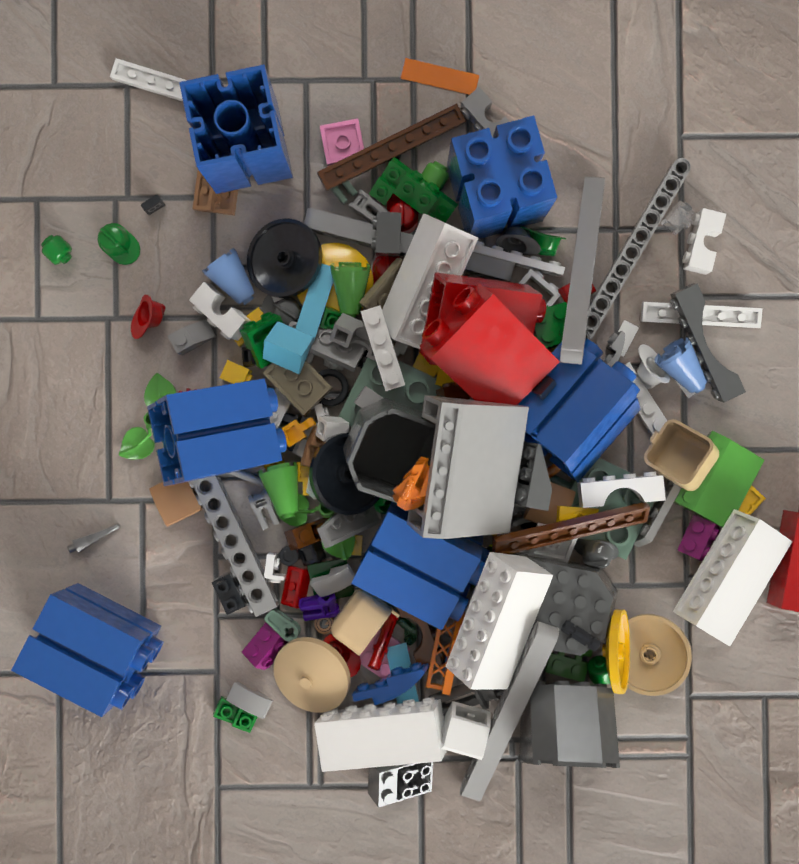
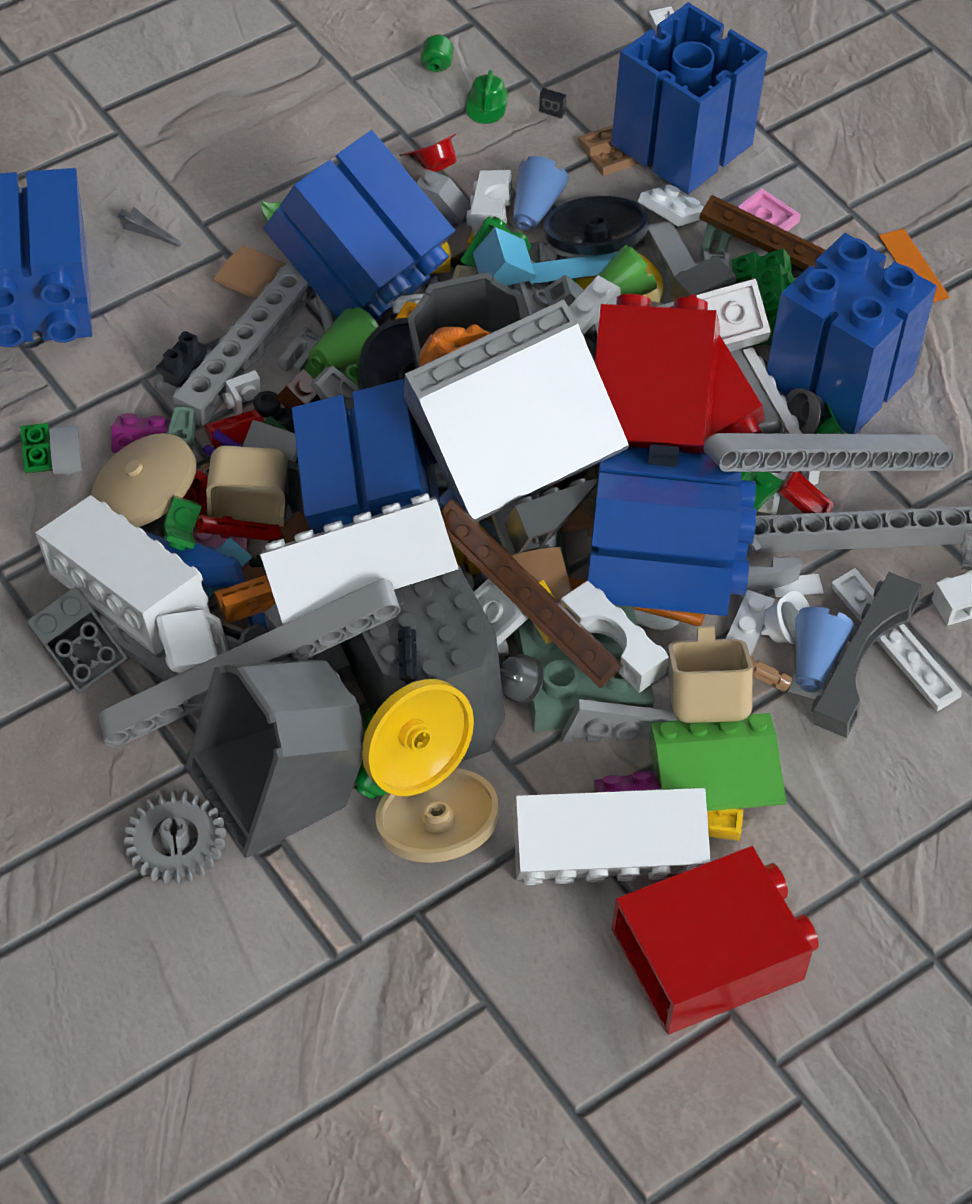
camera: 50 degrees right, 35 degrees down
(297, 195) = (671, 204): none -> white plate
(370, 683) = (180, 523): none -> green bracket
(573, 809) = (163, 816): none -> light grey gear
(675, 407) = (770, 675): none -> medium nougat axle

